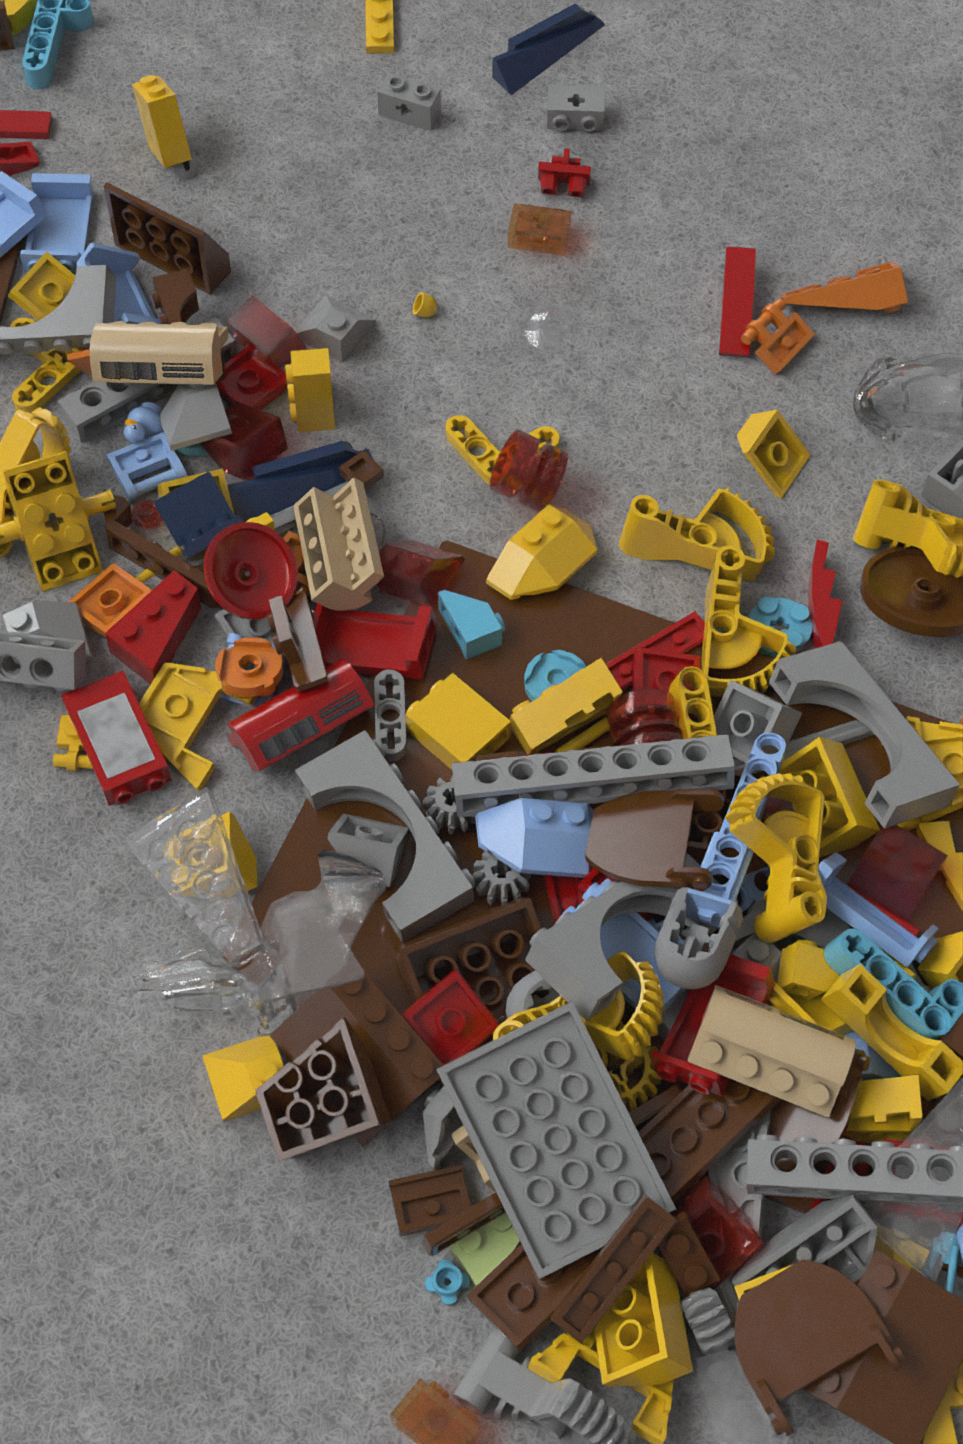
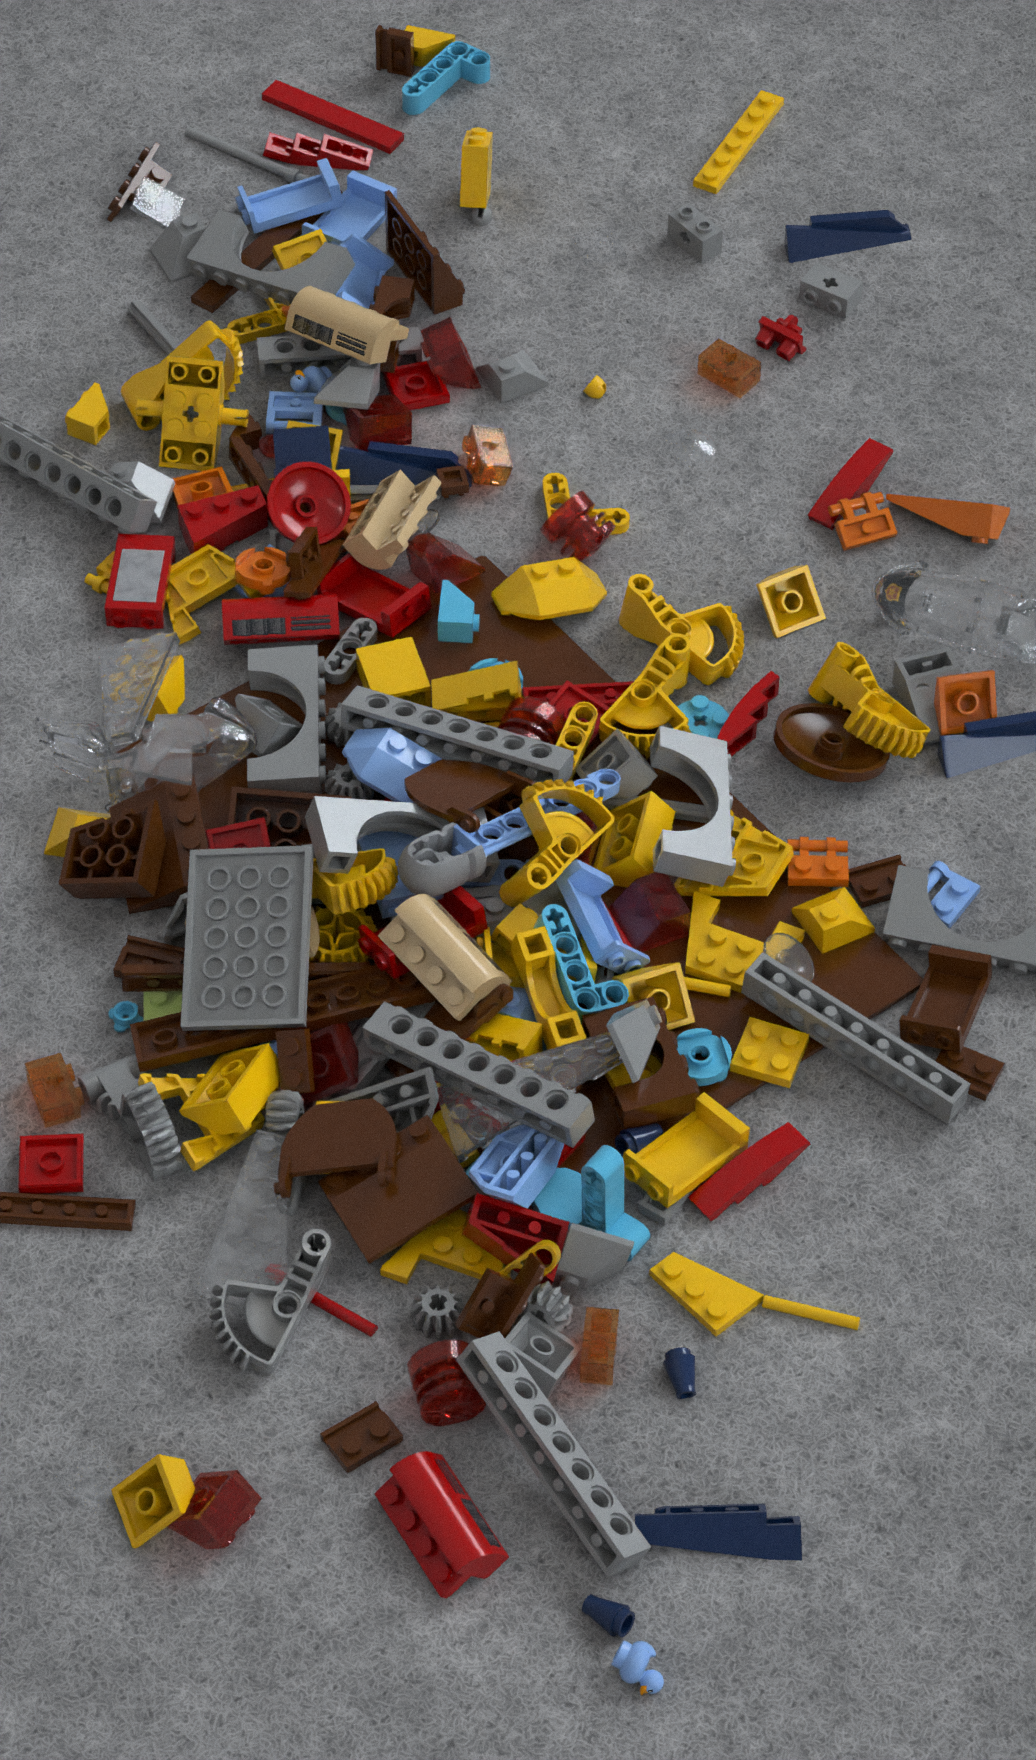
camera: 30 degrees right, 10 degrees down
(311, 390) = (451, 404): yellow wedge -> none
(377, 428) = (487, 455): none -> clear orange brick
(613, 1268) = (234, 1039): reddish brown plate -> none

